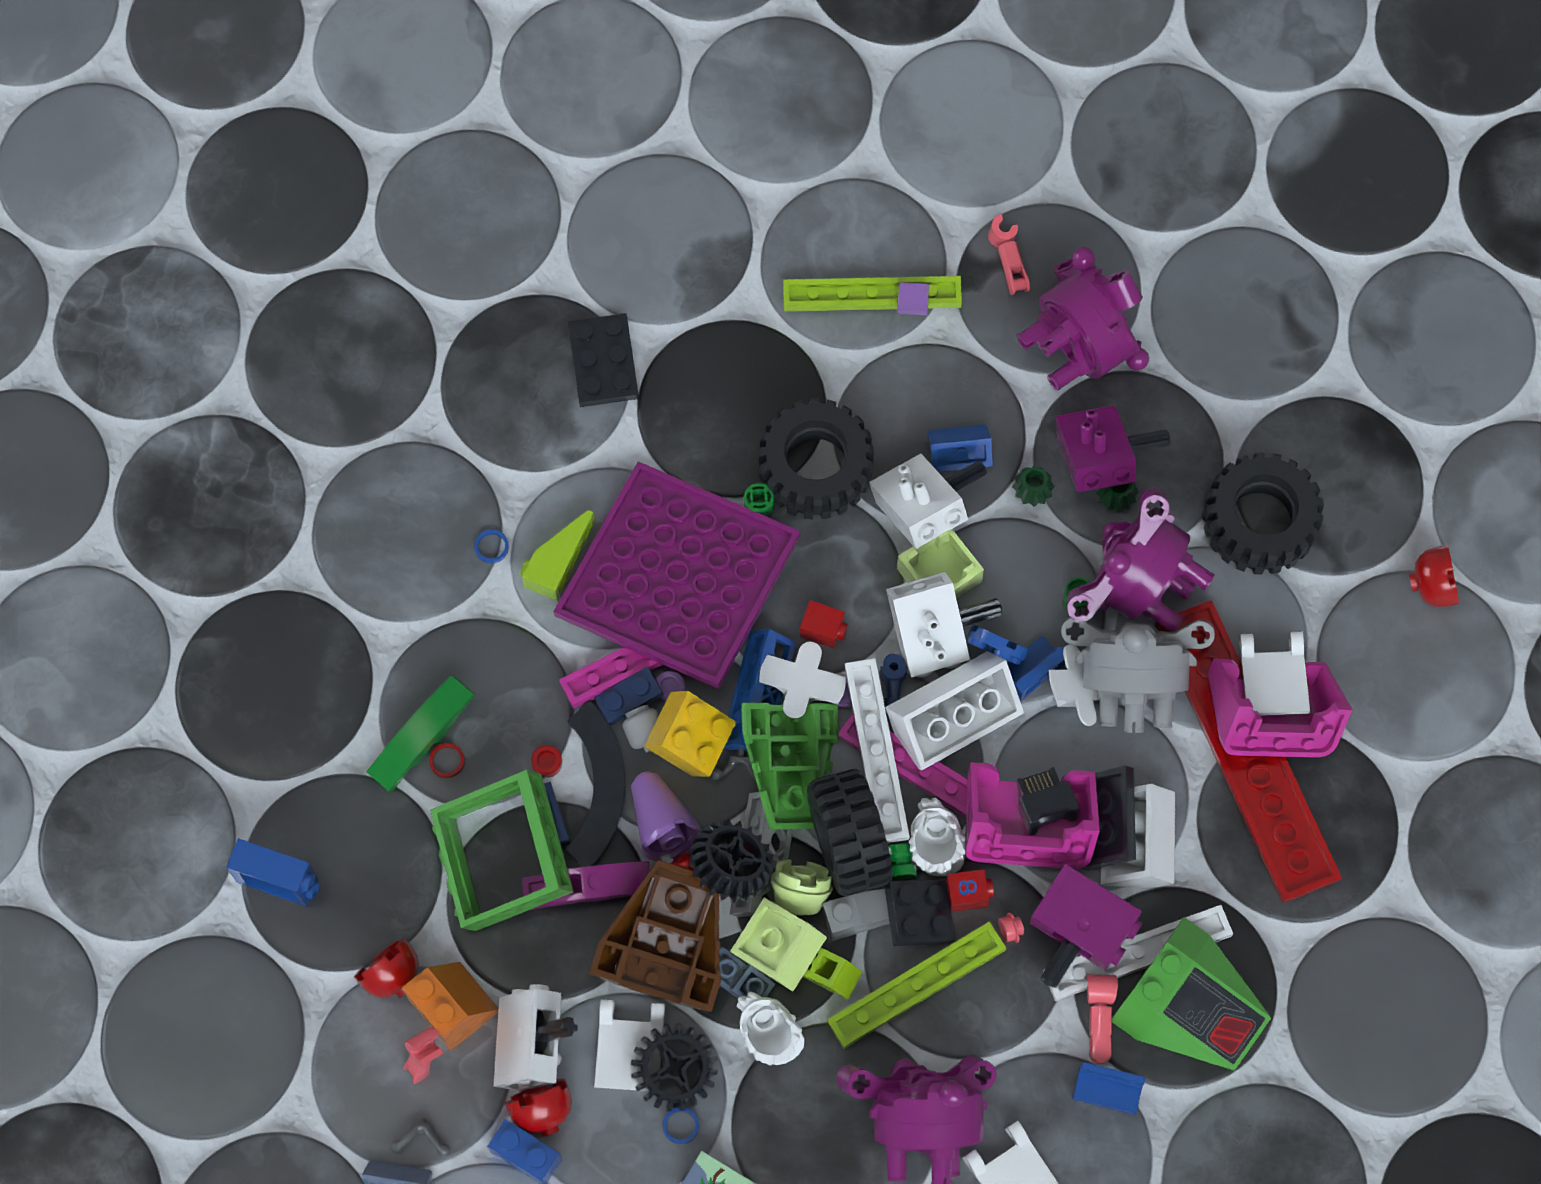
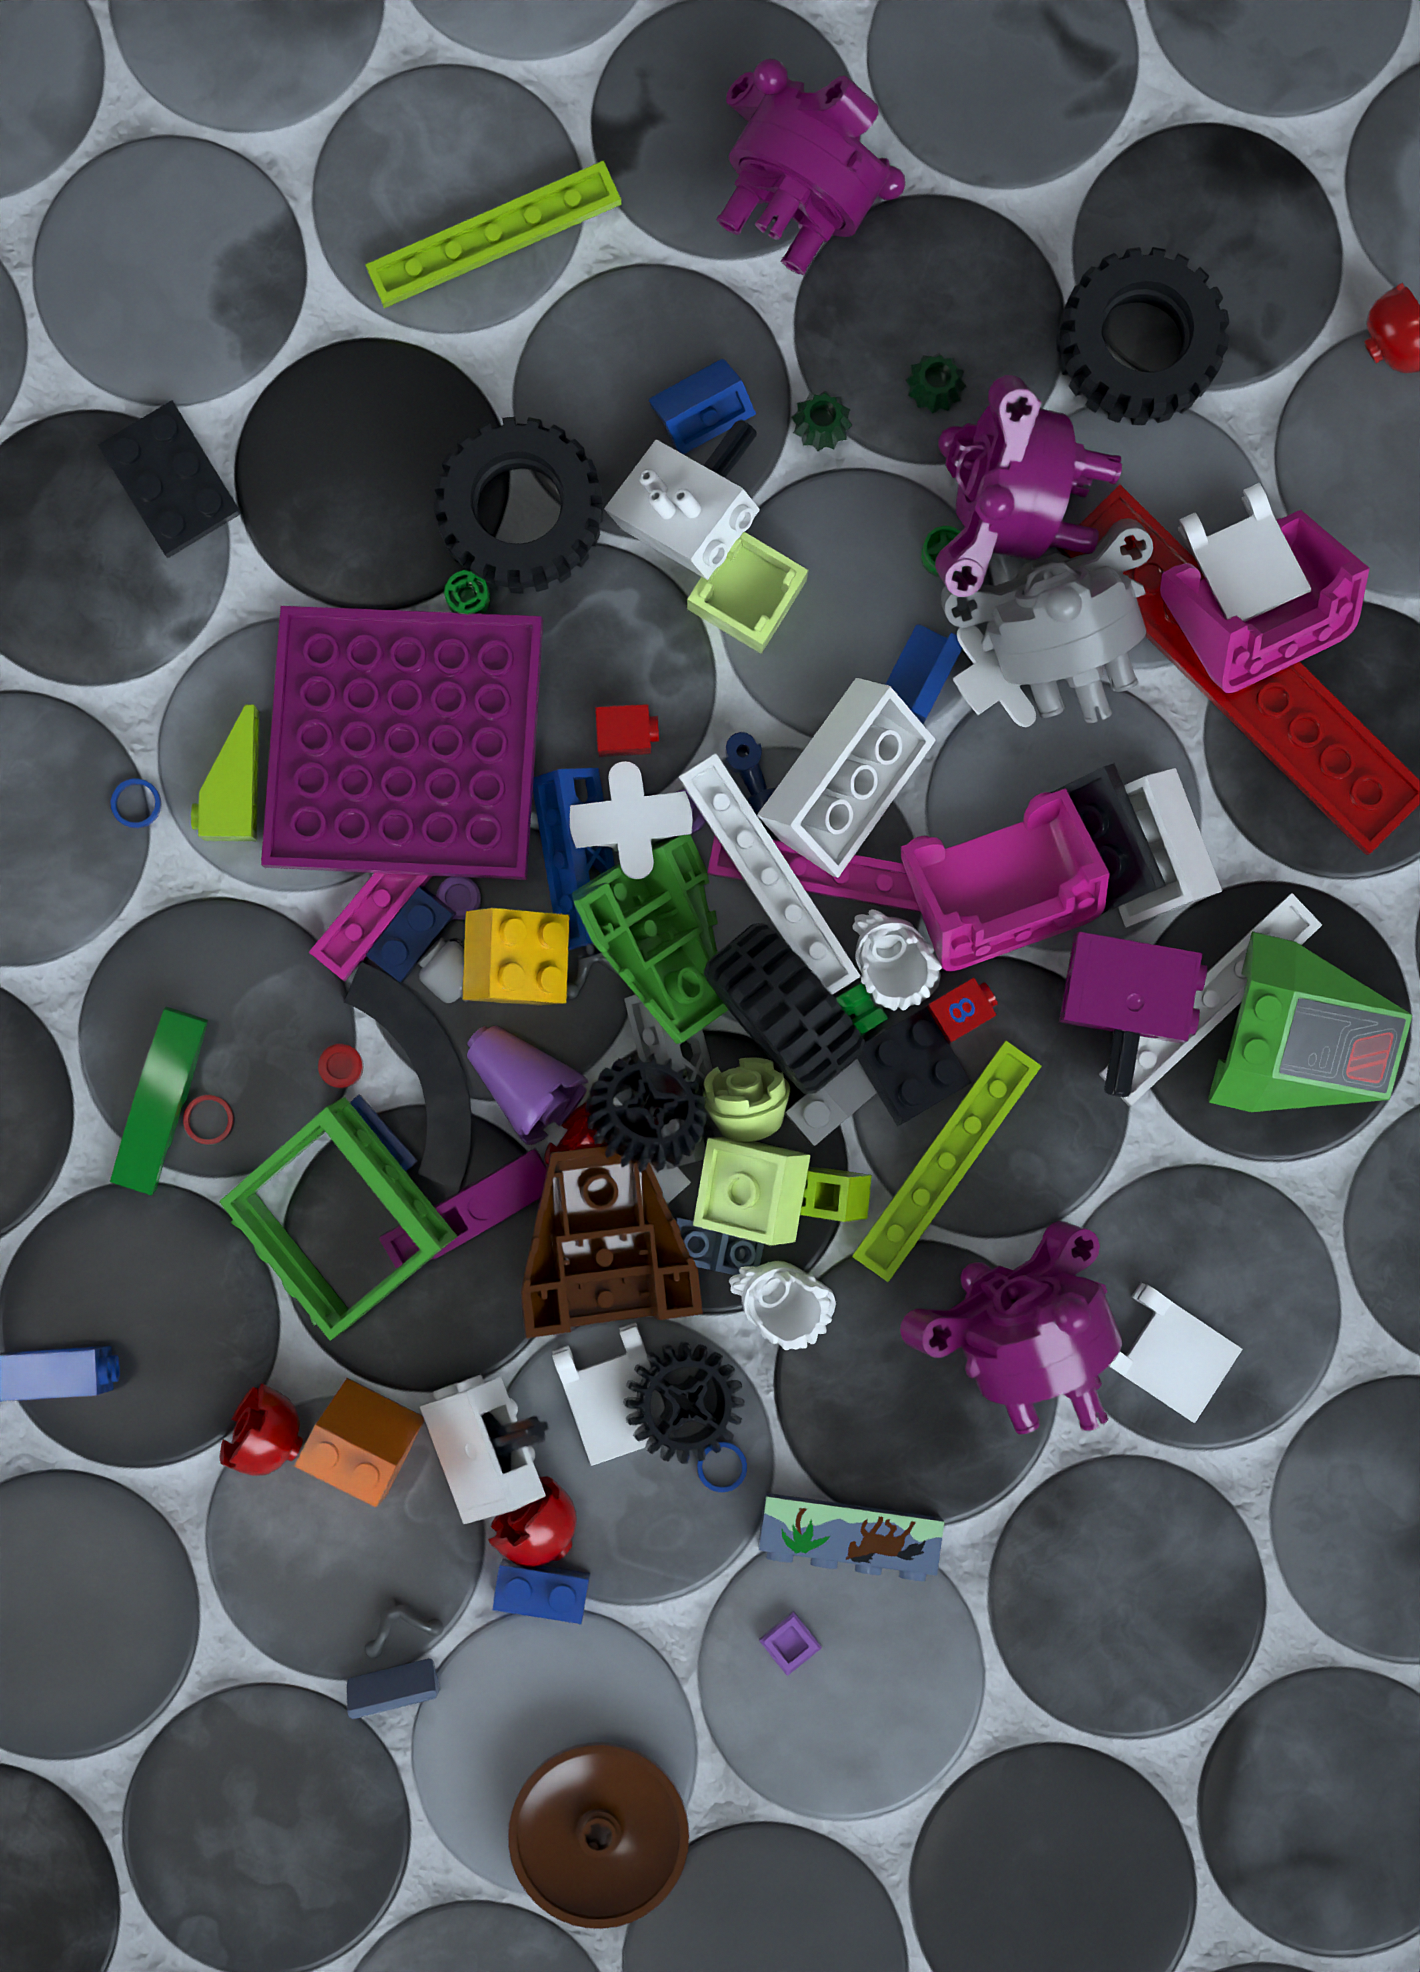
camera: 30 degrees left, 15 degrees up
(422, 1052) = (356, 1529): coral piece -> none
(913, 298) = (554, 221): medium lavender tile -> none
(932, 625) = (771, 673): white piece -> none
(1004, 648) = (879, 664): blue plate -> none
(1009, 255) = (656, 102): coral piece -> none
(1011, 928) = (1035, 1035): coral plate -> none
(1045, 800) = (1016, 852): black piece -> none
(1099, 449) = (892, 336): magenta piece -> none
(1100, 992) = (1184, 1072): coral piece -> none
(1108, 1088) = (1242, 1193): blue panel -> none

